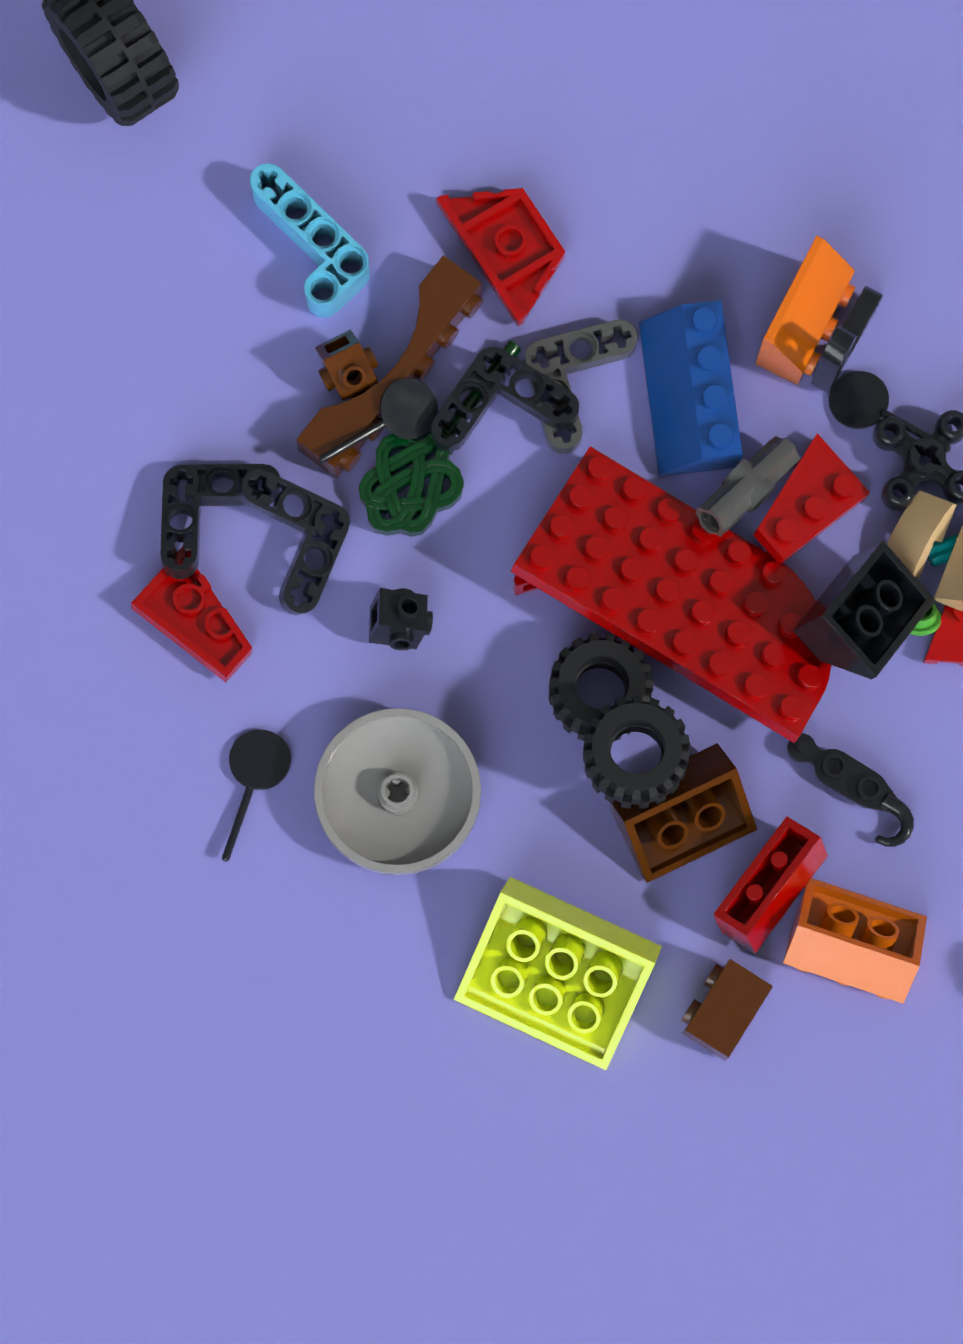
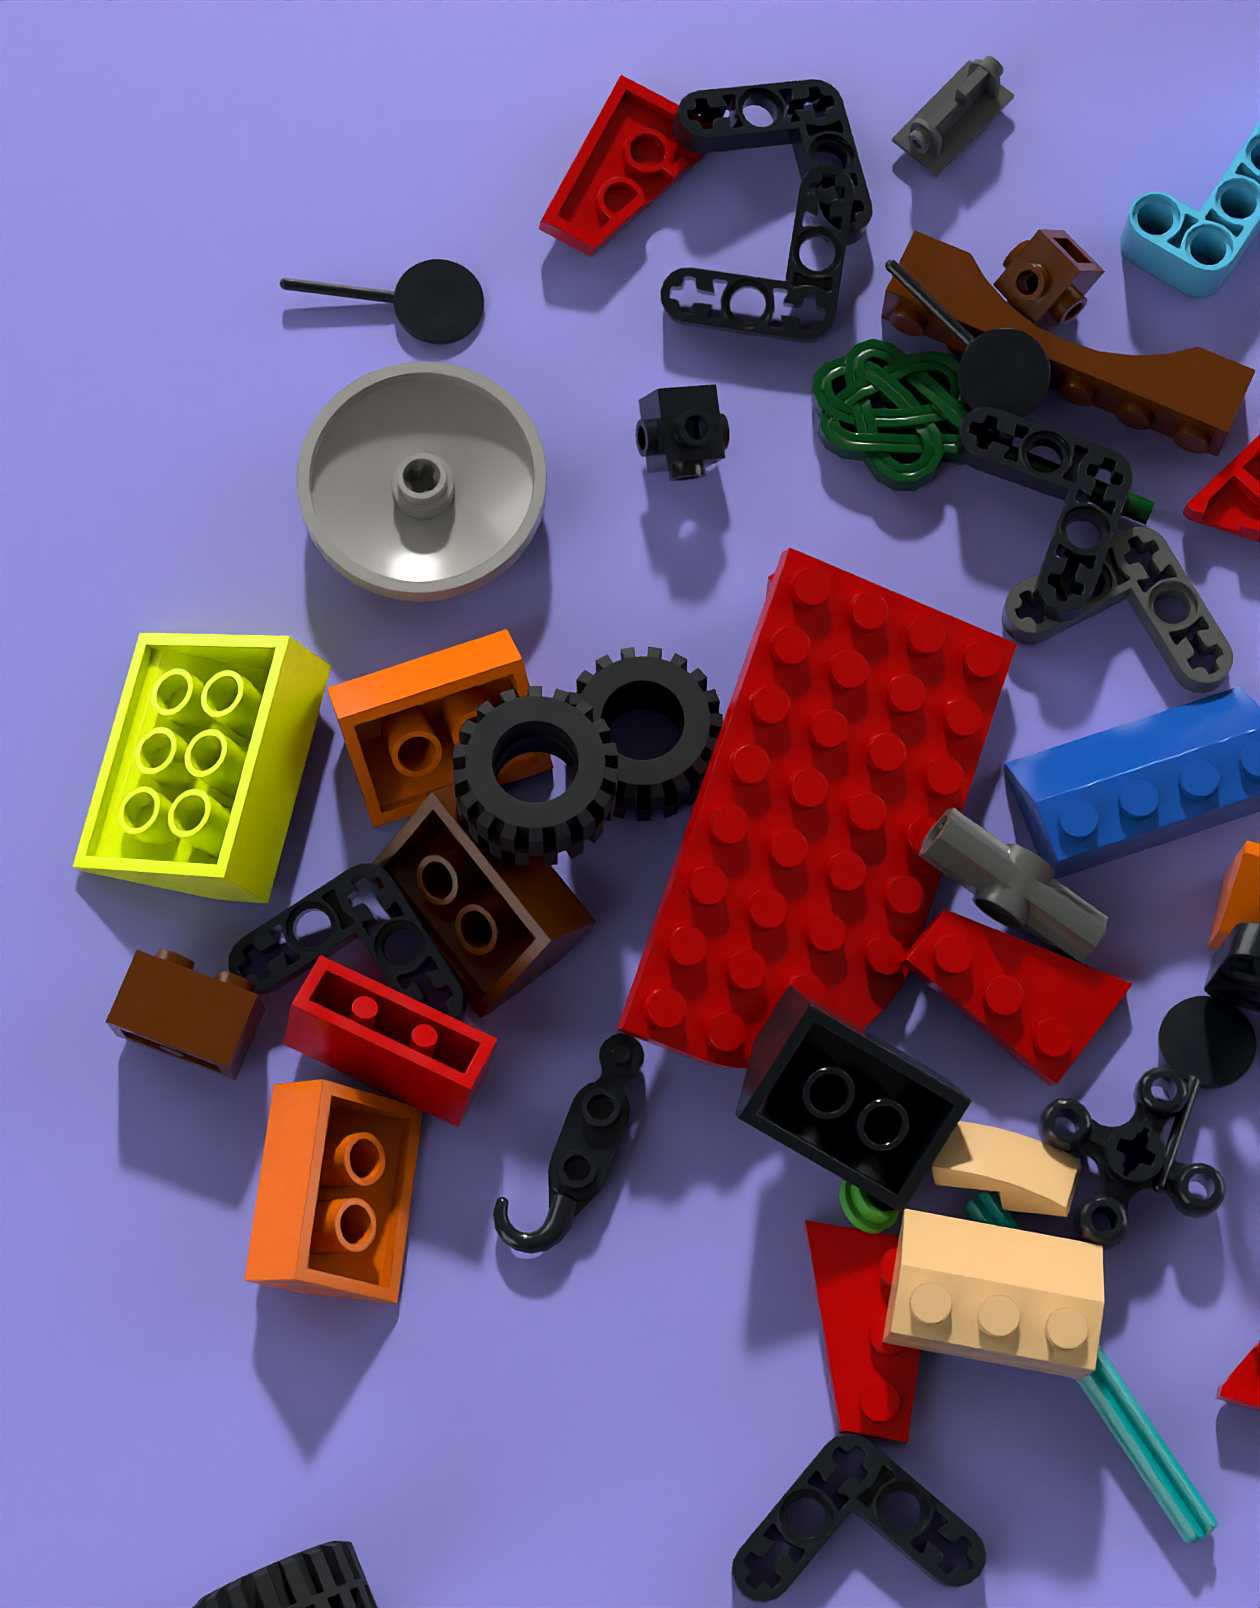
camera: 80 degrees right, 5 degrees down
(207, 397) = (955, 115): none -> dark grey hinge
(562, 818) = (410, 716): none -> orange slope
(685, 898) = (346, 925): none -> black beam

